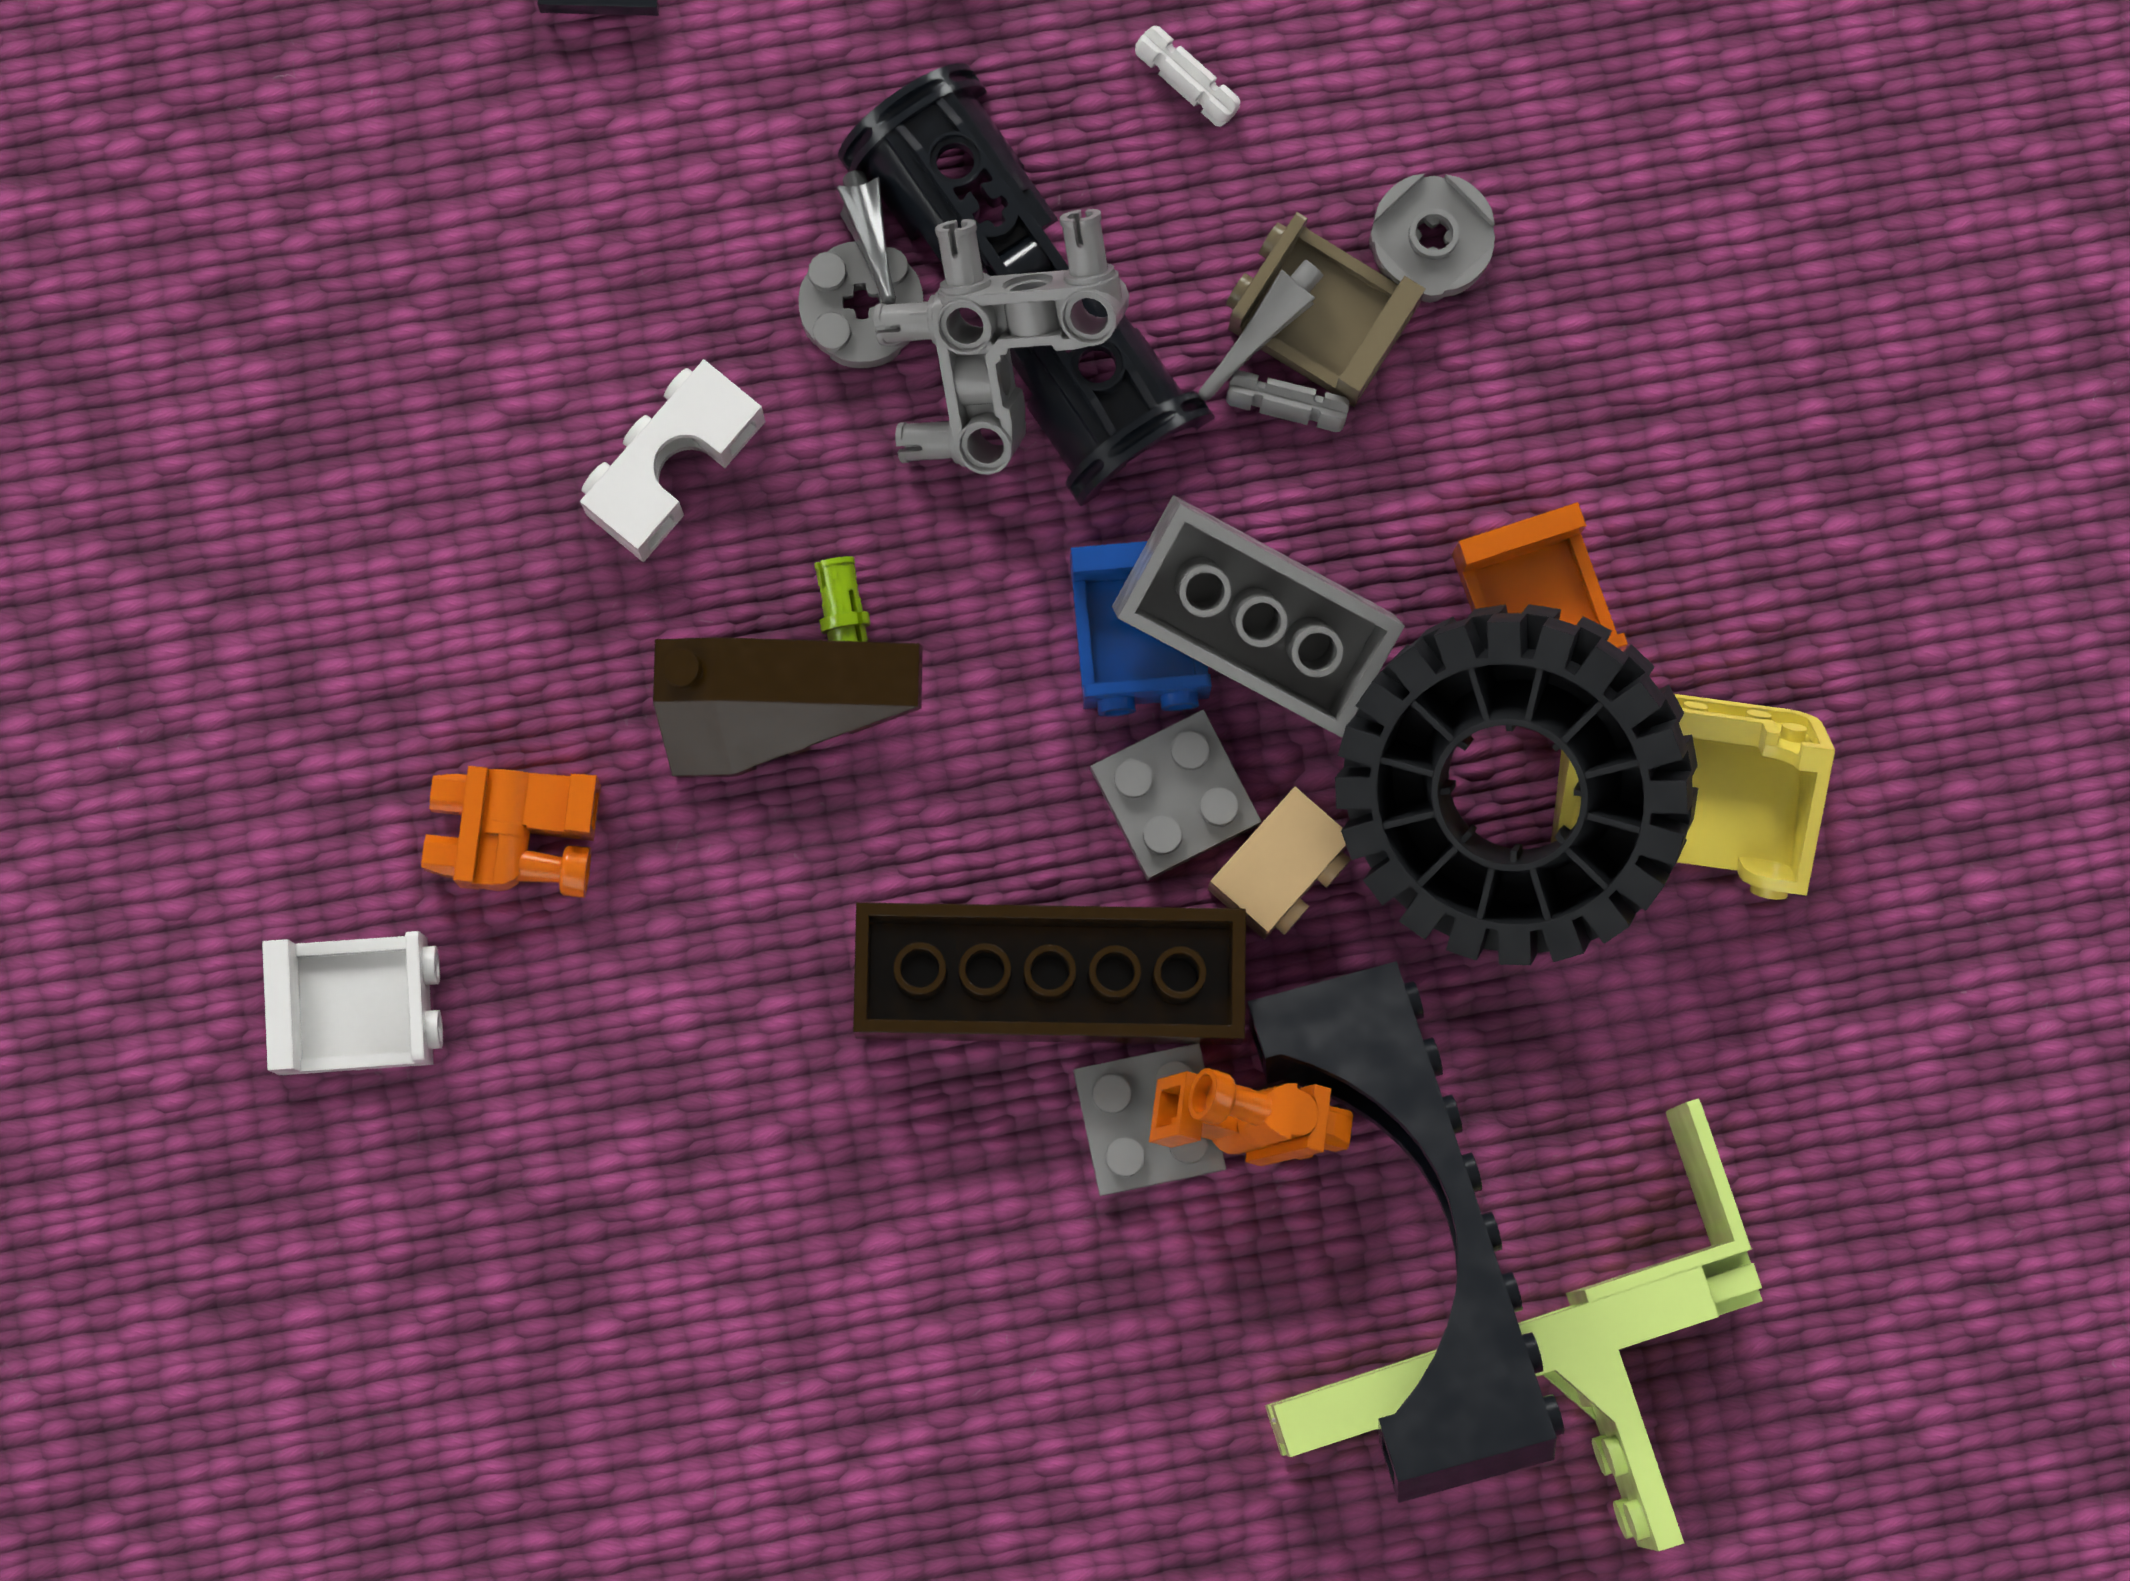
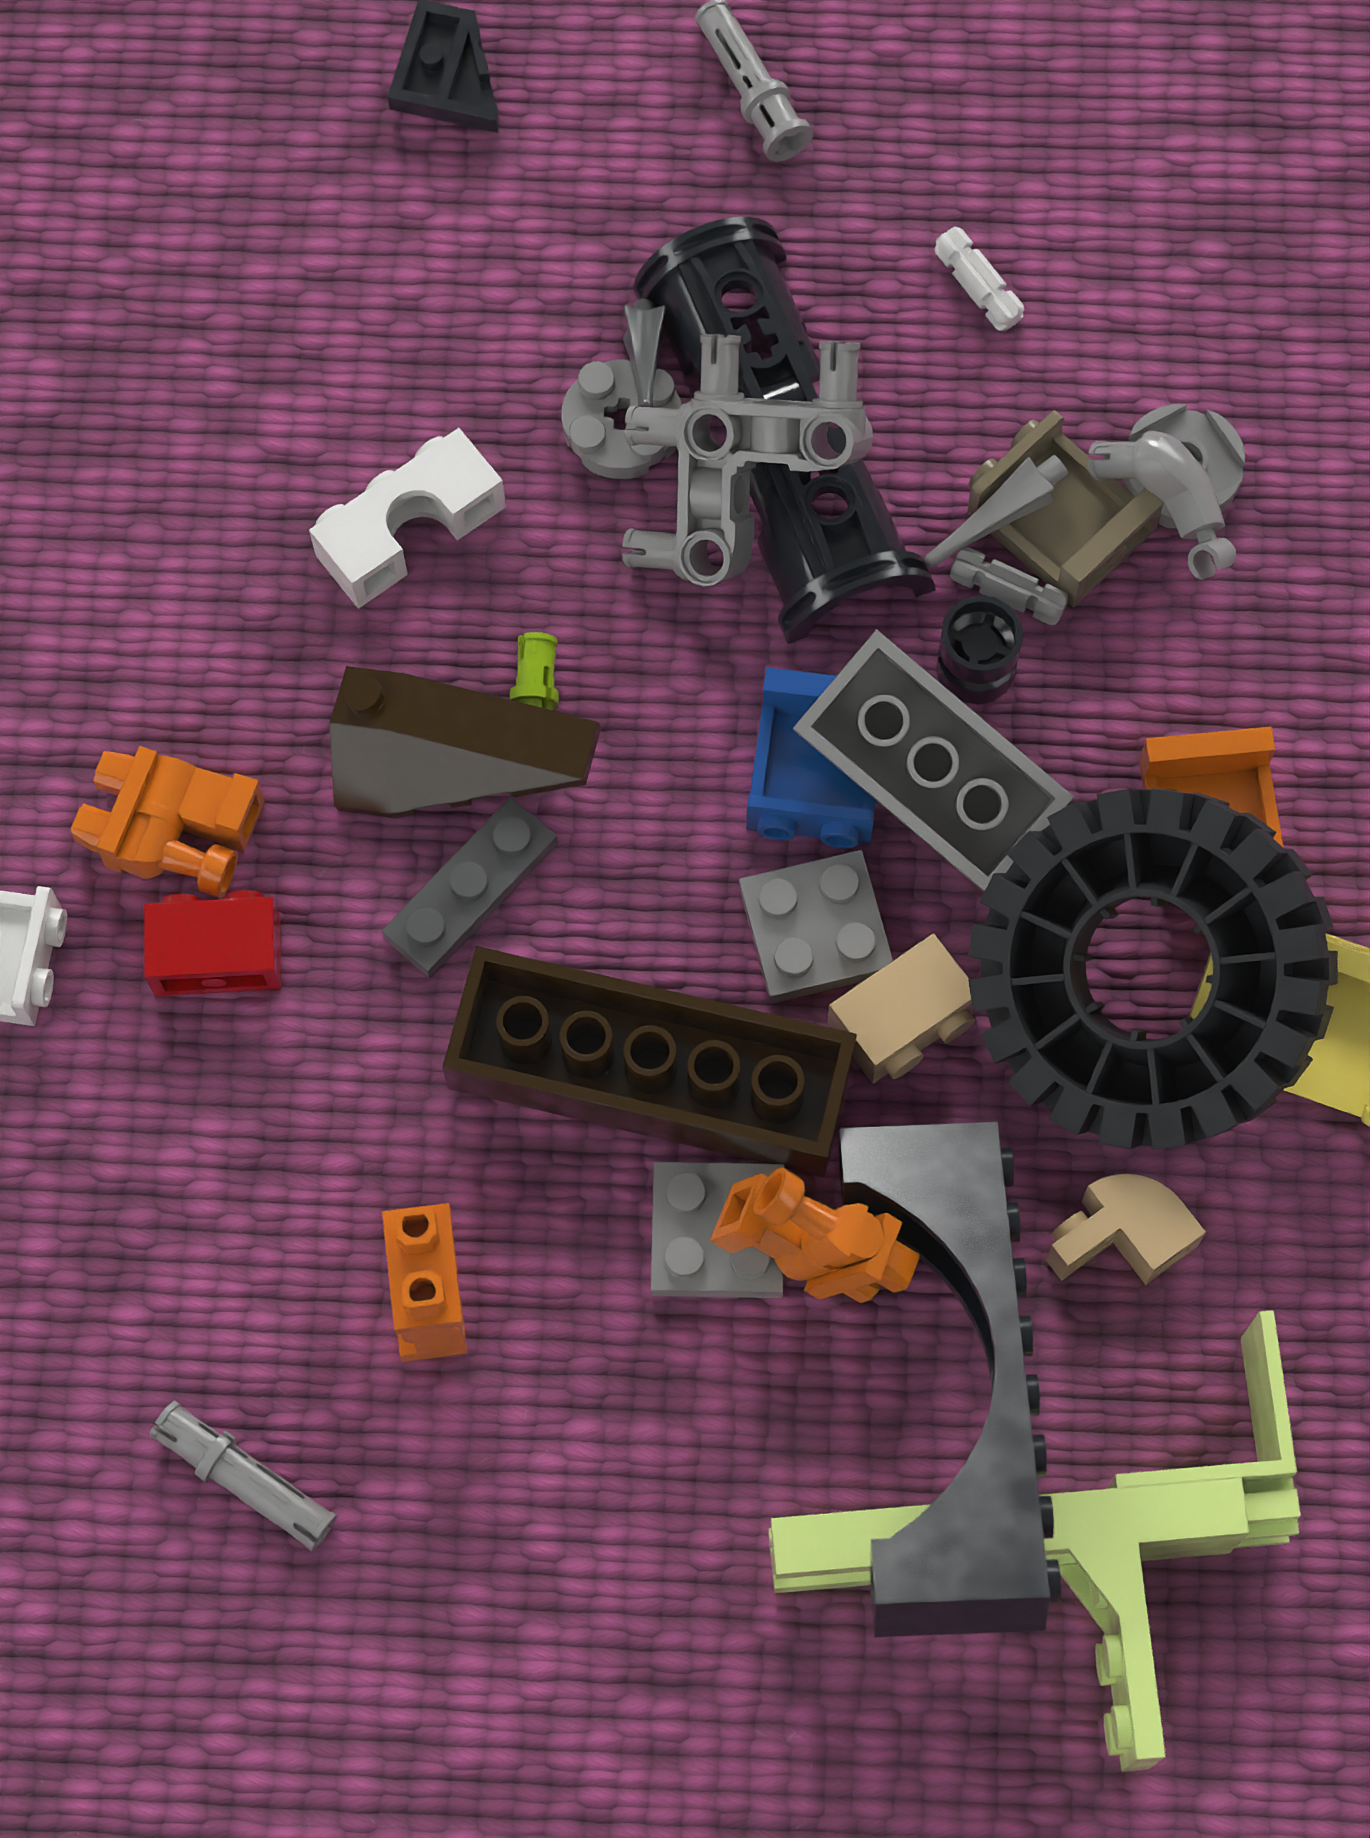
camera: 20 degrees right, 10 degrees down
(590, 947) = (212, 944): none -> red brick
(752, 1462) = (255, 1484): none -> light grey pin
(827, 830) = (469, 887): none -> dark grey plate
(887, 1243) = (424, 1282): none -> orange hips
(1275, 480) = (979, 649): none -> black wheel
(1434, 261) = (1181, 482): none -> light grey arm
(1547, 1020) = (1137, 1217): none -> tan brick

